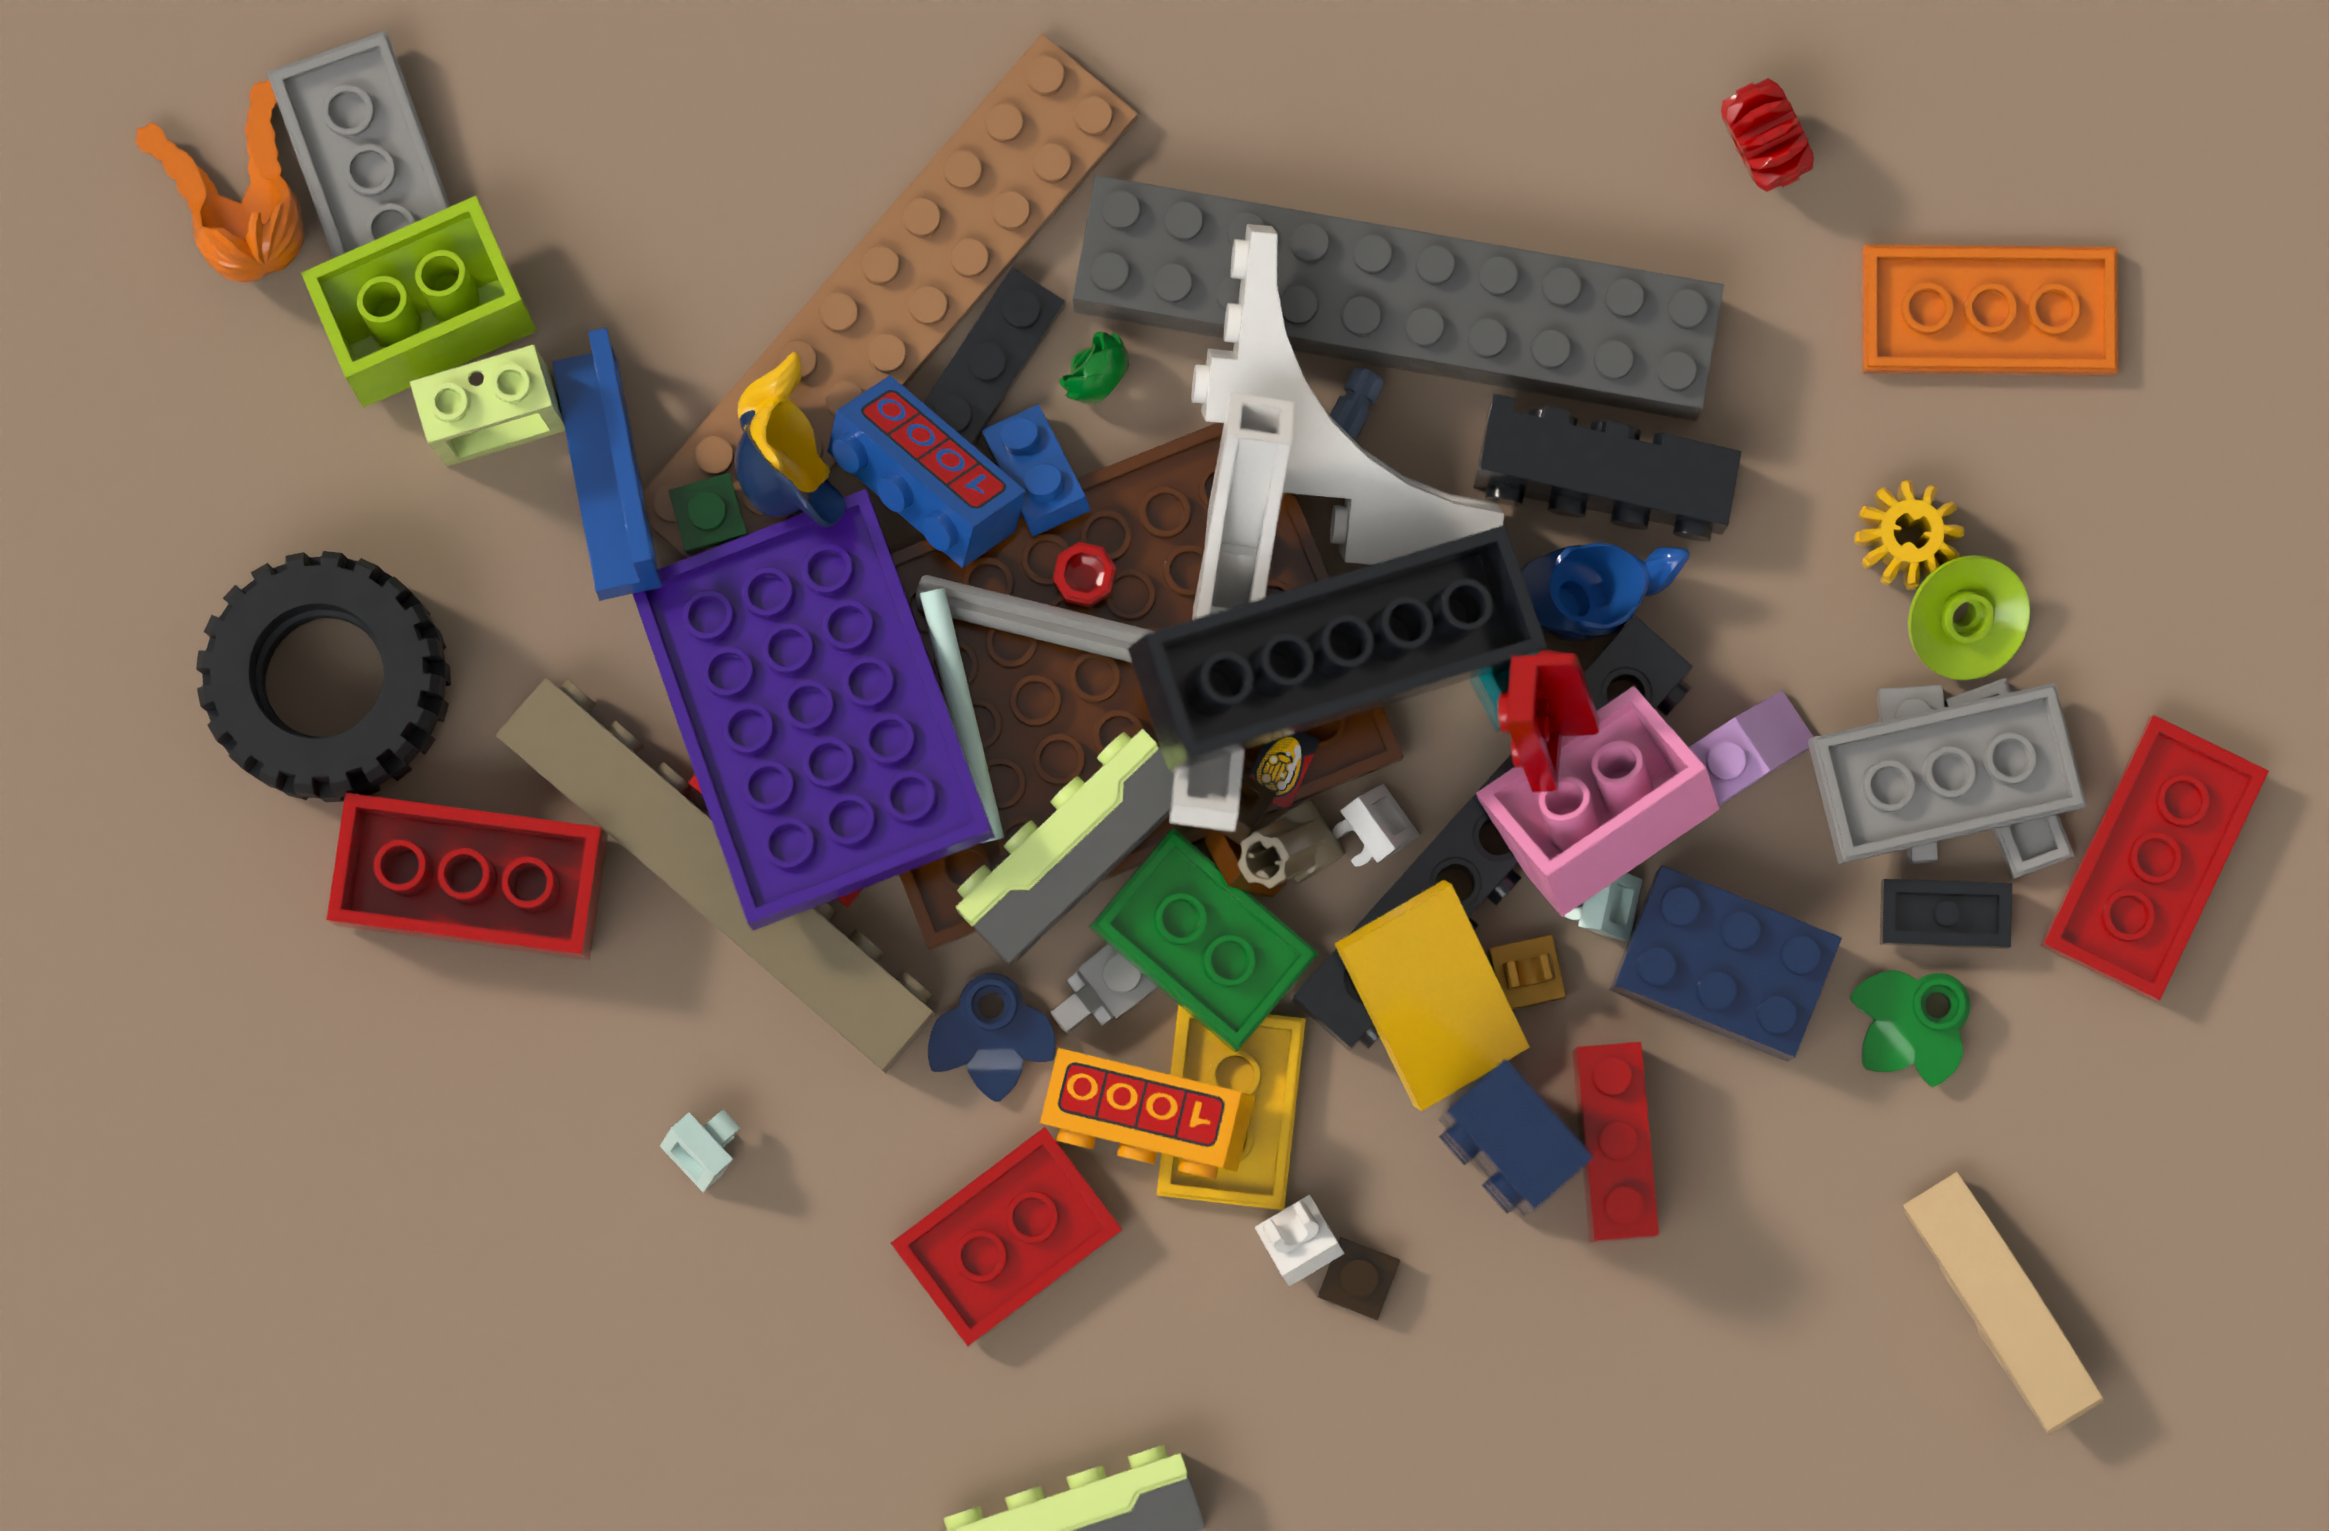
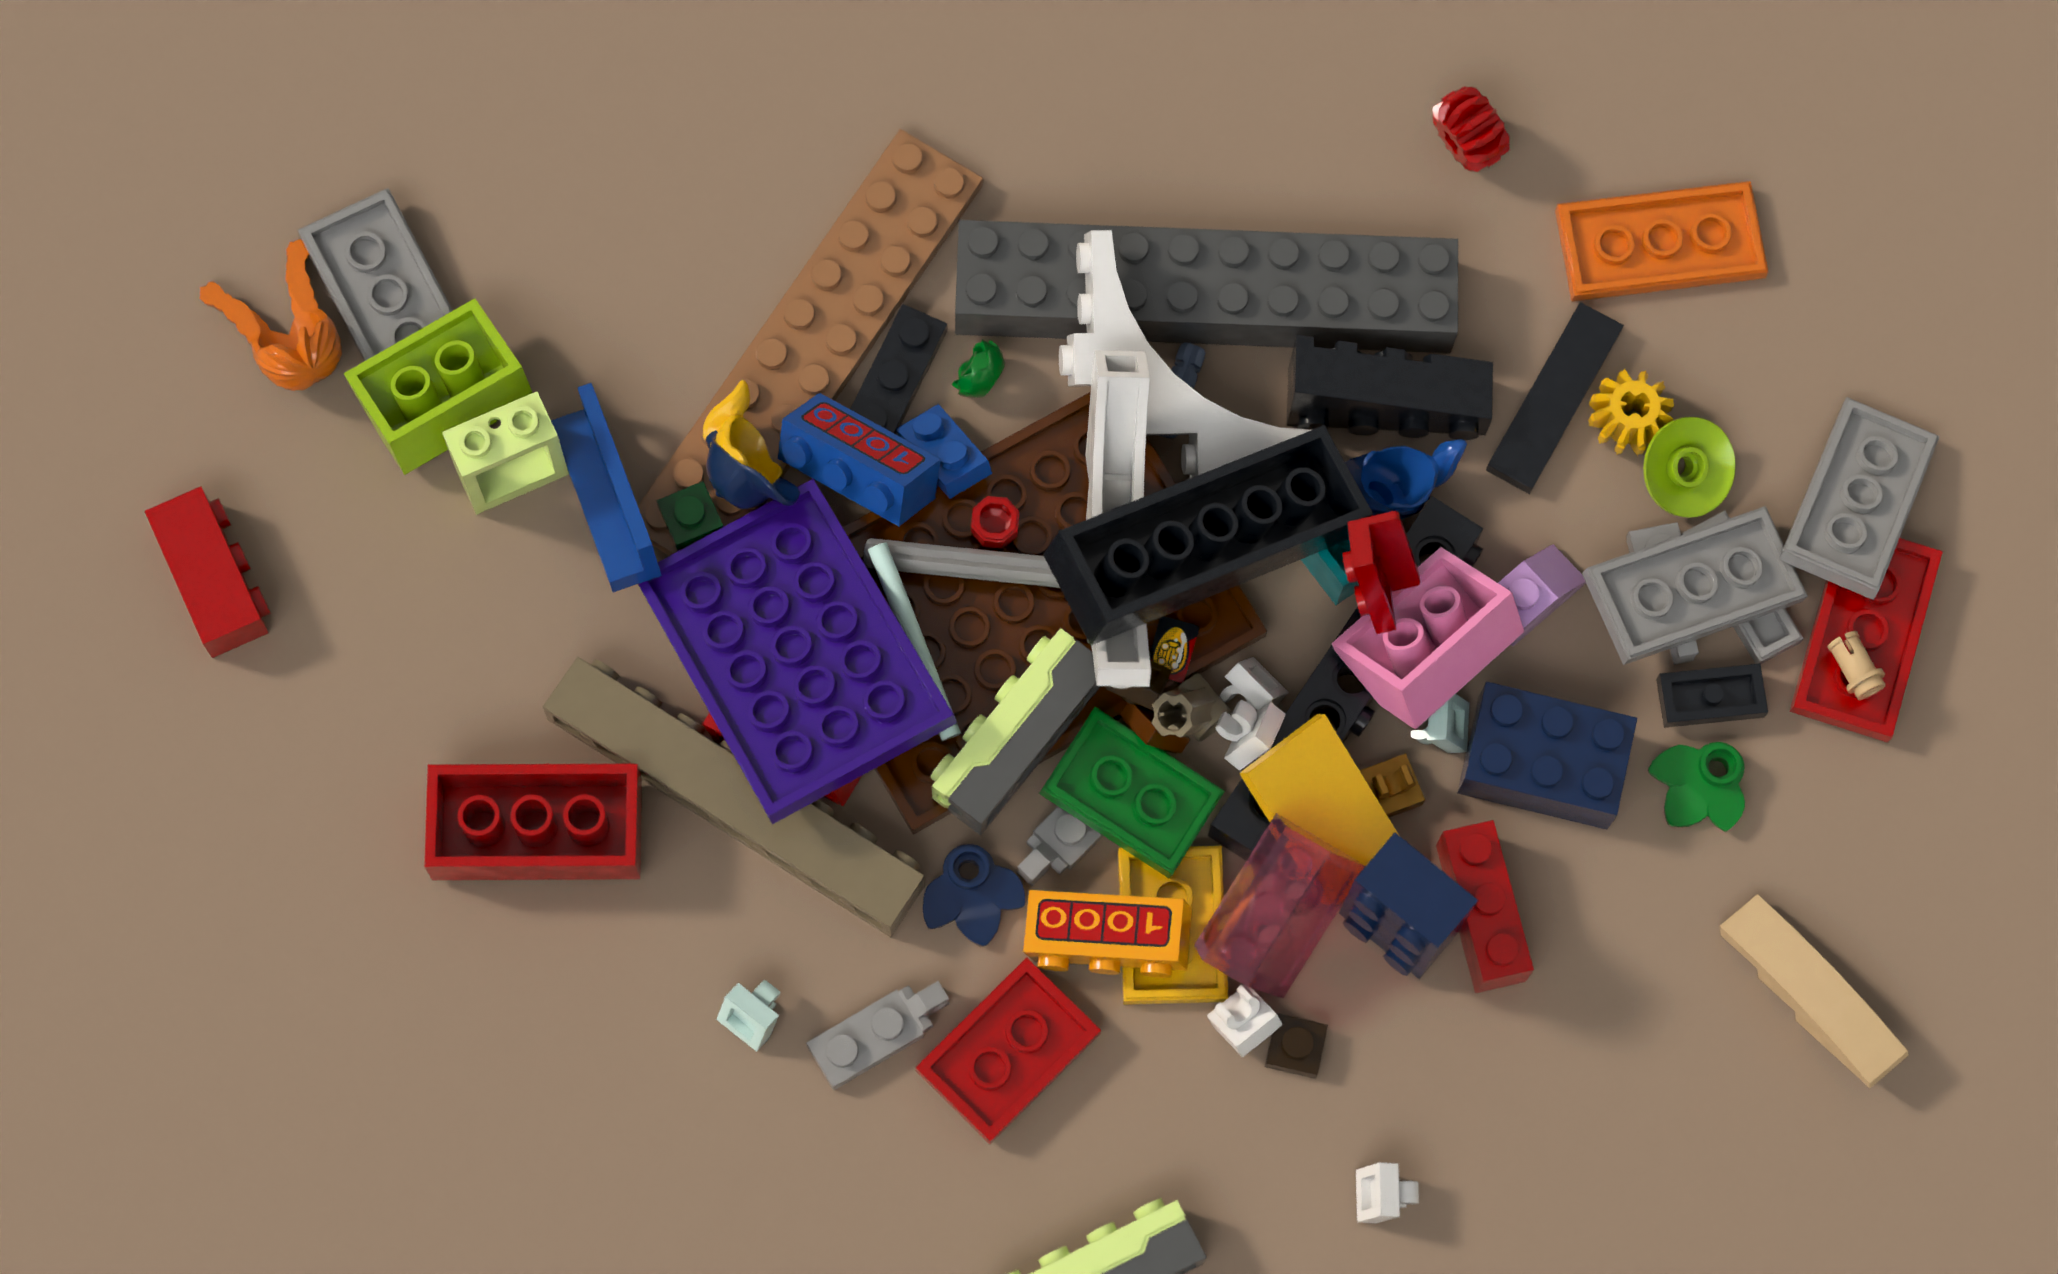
camera: 15 degrees left, 10 degrees down
(108, 500) = (209, 571): none -> red brick
(259, 621) = (386, 618): black tyre -> none
(849, 1191) = (876, 1033): none -> light grey hinge
(1357, 1114) = (1277, 908): none -> clear pink slope
(1359, 887) = (1249, 731): none -> white tile
(1431, 1476) = (1382, 1194): none -> white tile
(1817, 499) = (1554, 398): none -> black tile
(2130, 910) = (1857, 667): none -> tan pin
(2176, 687) = (1859, 498): none -> light grey tile

